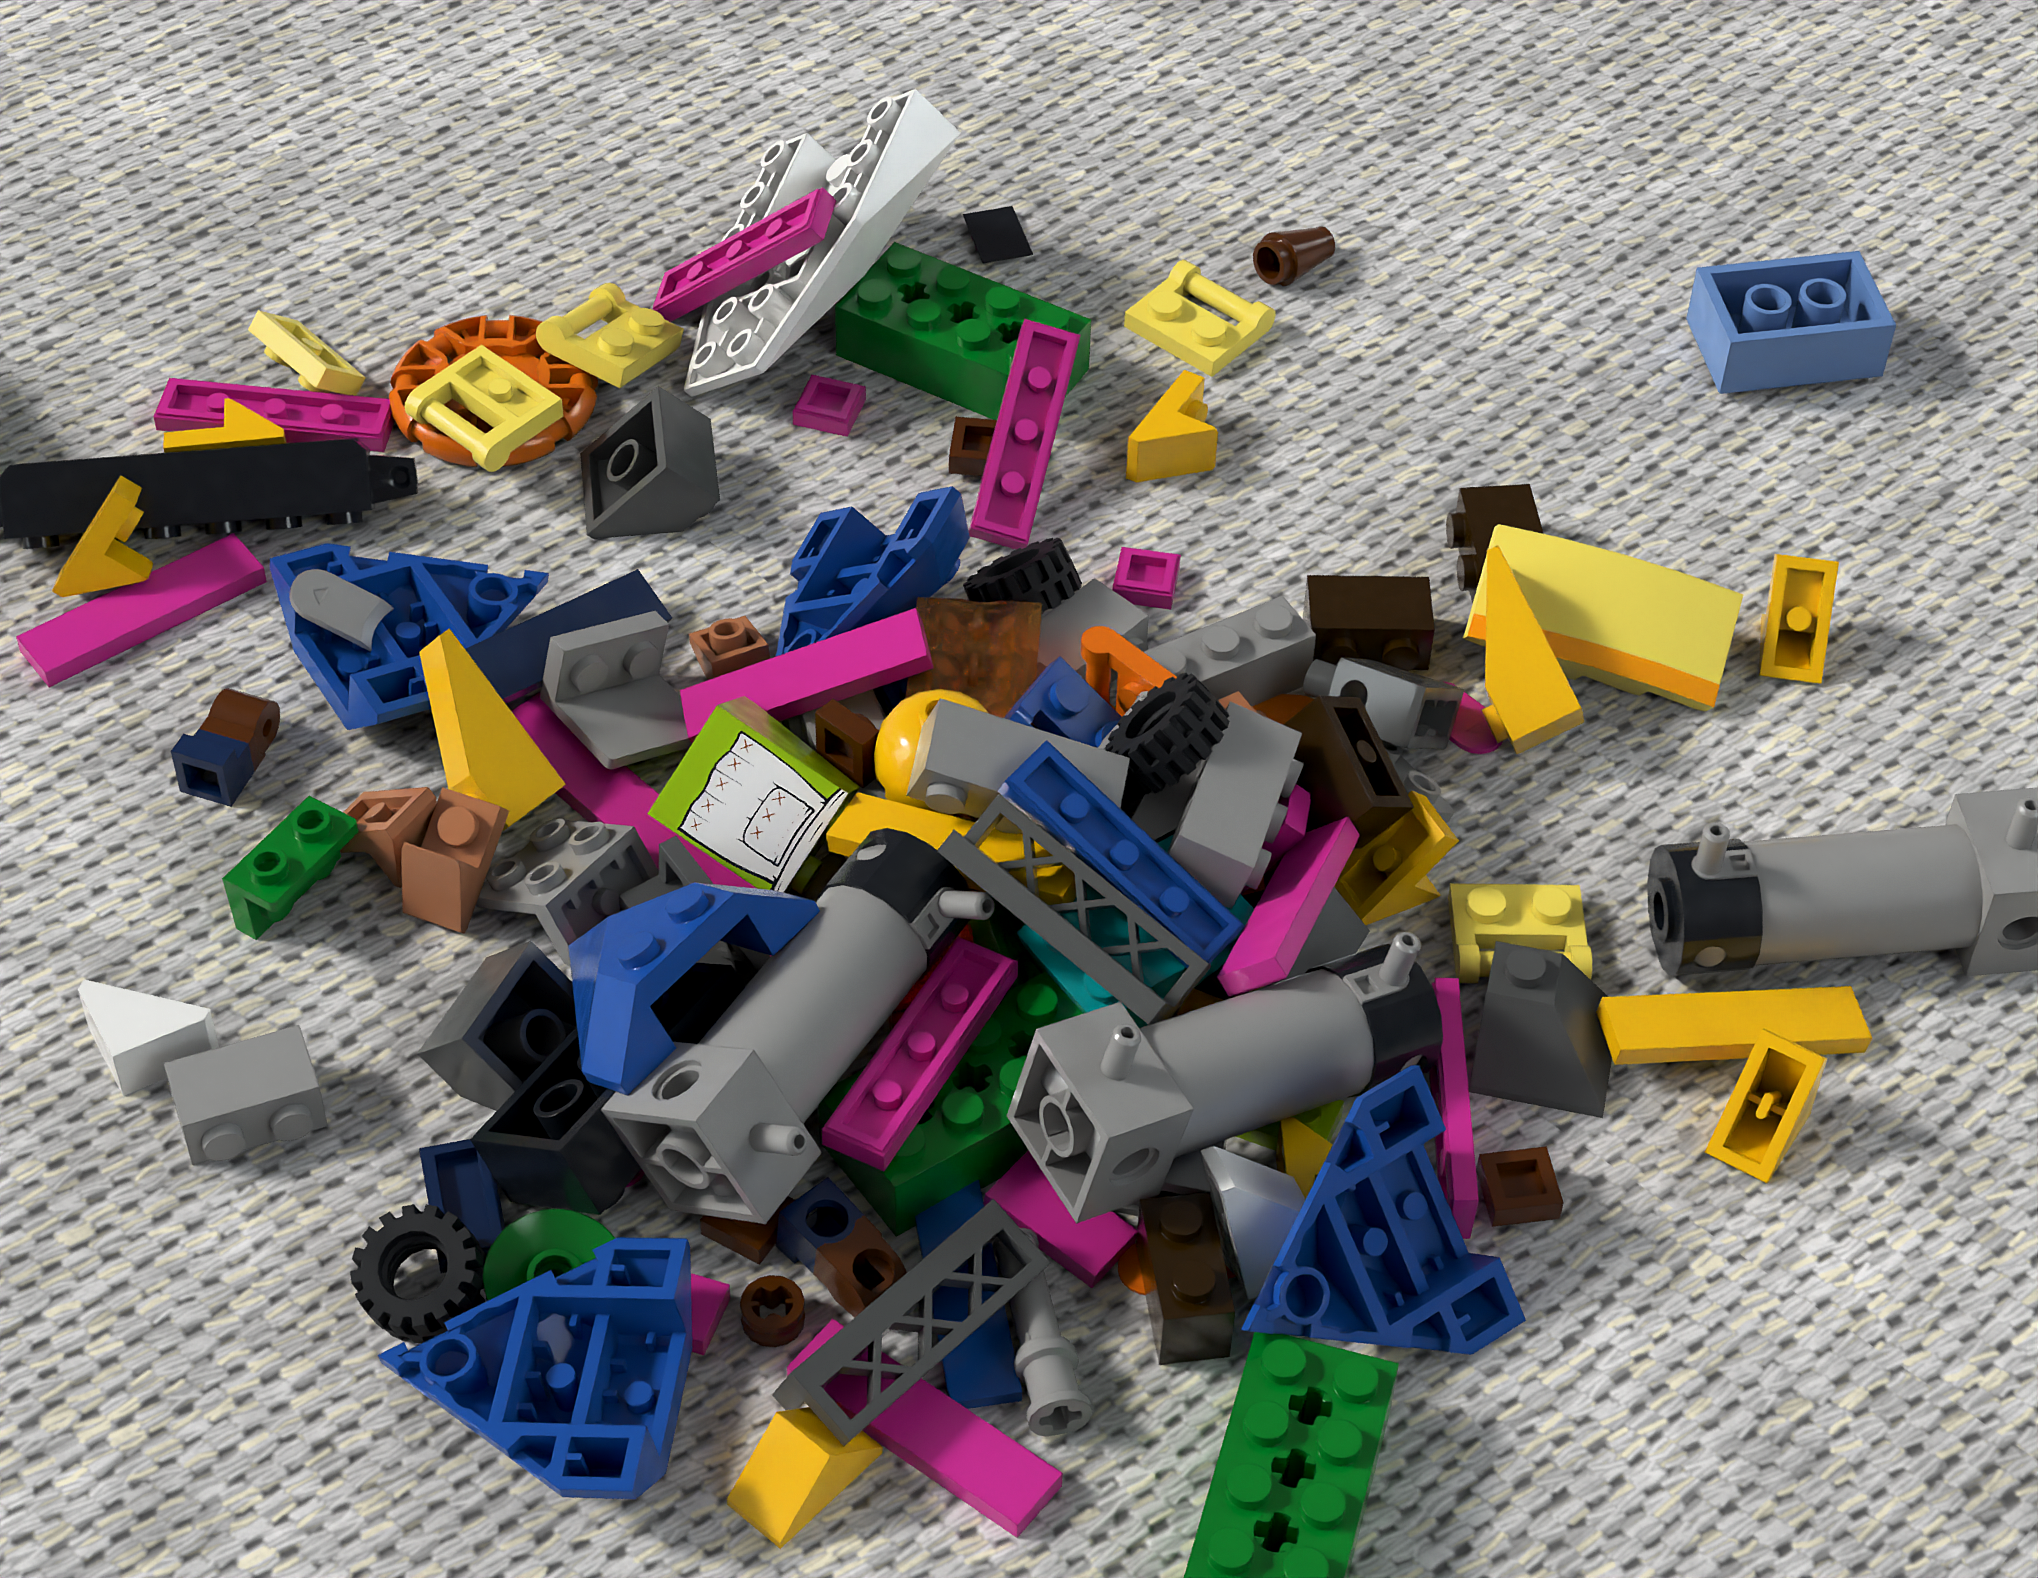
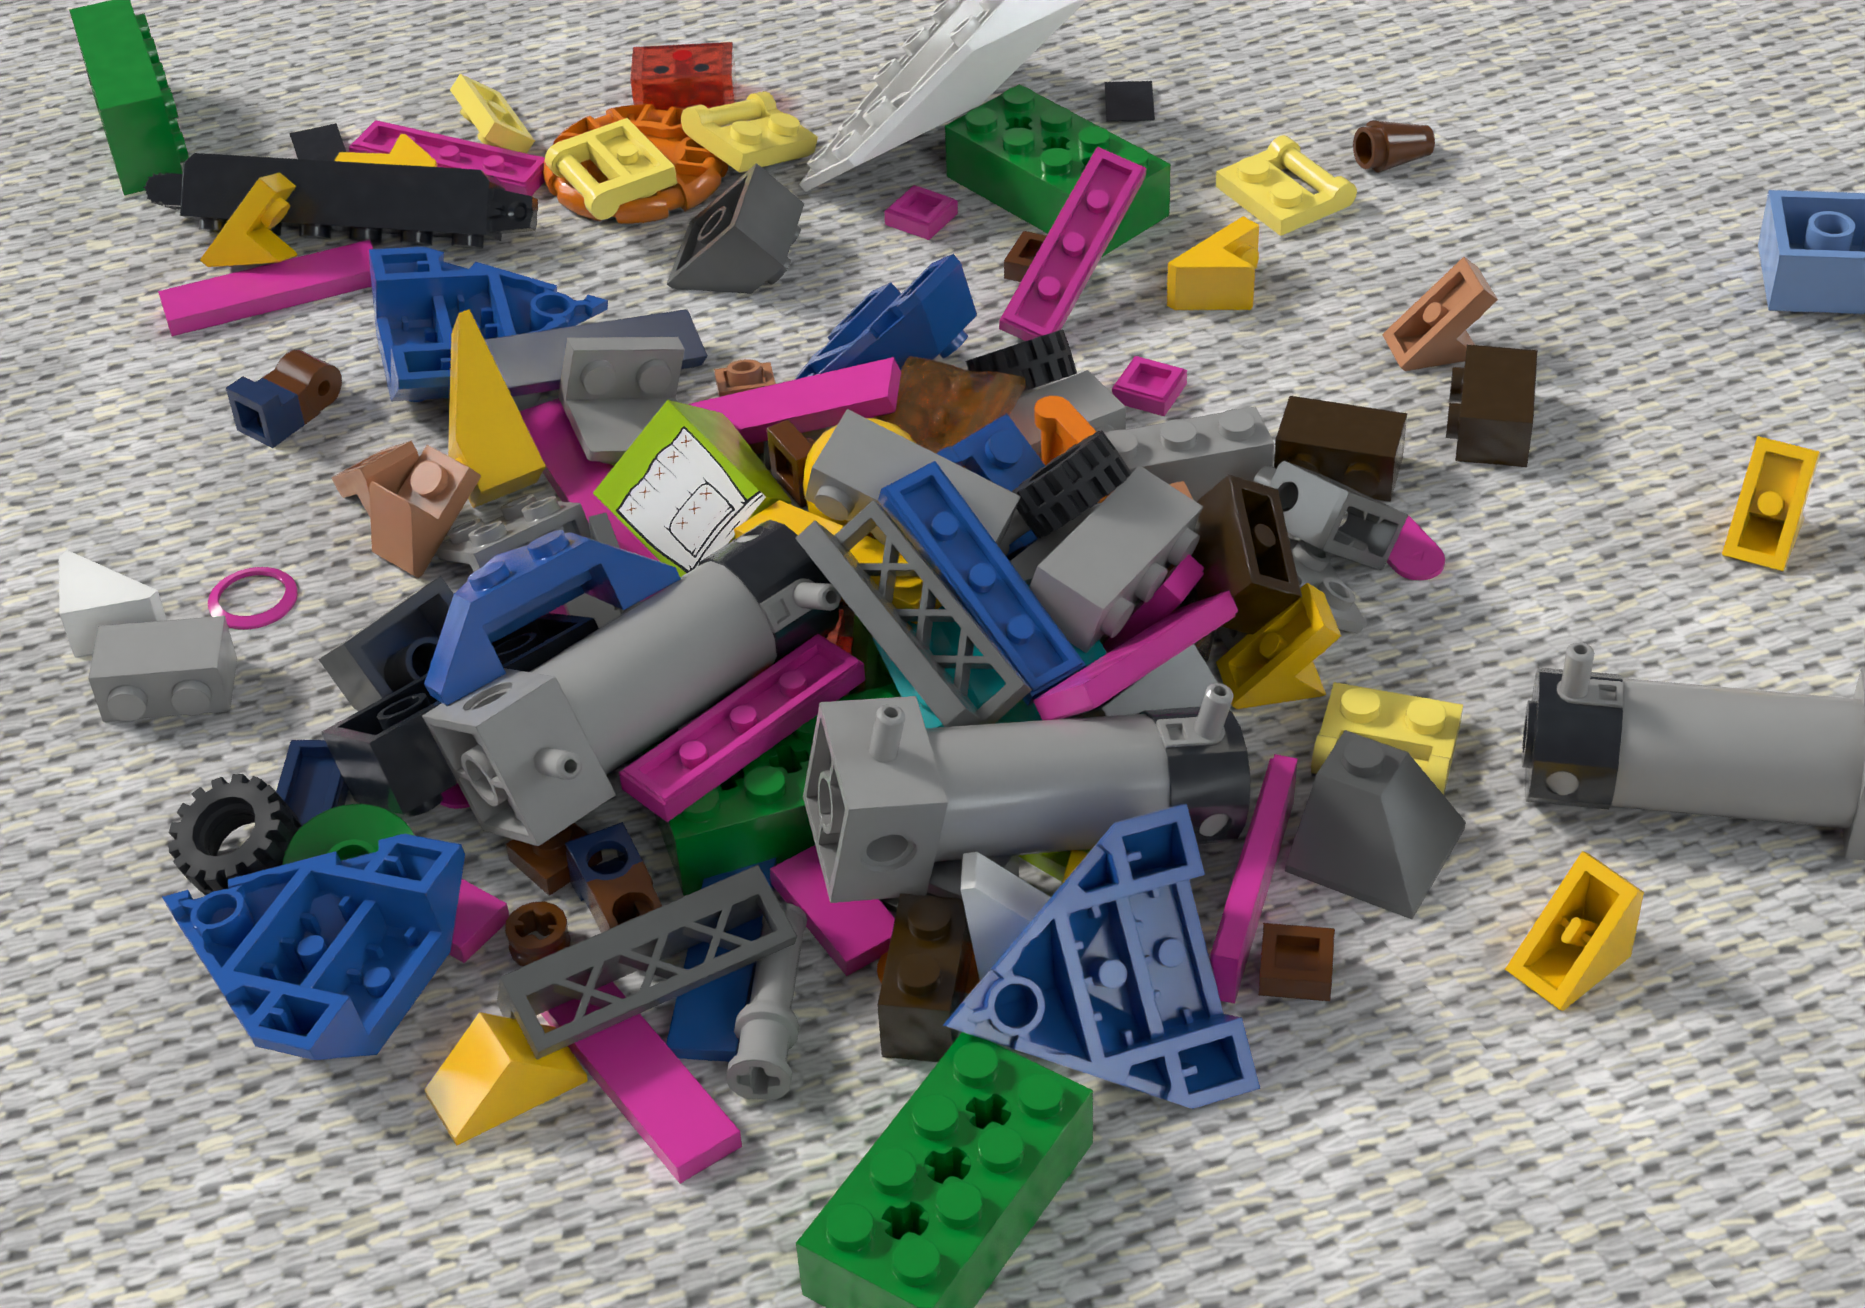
camera: 20 degrees right, 5 degrees down
(113, 419) = (318, 143): none -> black piece
(286, 865) = (281, 493): green bracket -> none
(305, 1018) = (258, 620): none -> dark pink piece
(338, 605) = (410, 294): light grey piece -> none
(510, 277) = (684, 75): none -> clear red brick
(745, 255) = (878, 74): dark pink tile -> none
(1414, 461) = (1436, 324): none -> nougat slope
(1522, 675) = (1463, 500): yellow slope -> none
(1618, 616) = (1570, 473): light yellow slope -> none
(1729, 1023) = (1546, 848): yellow tile -> none

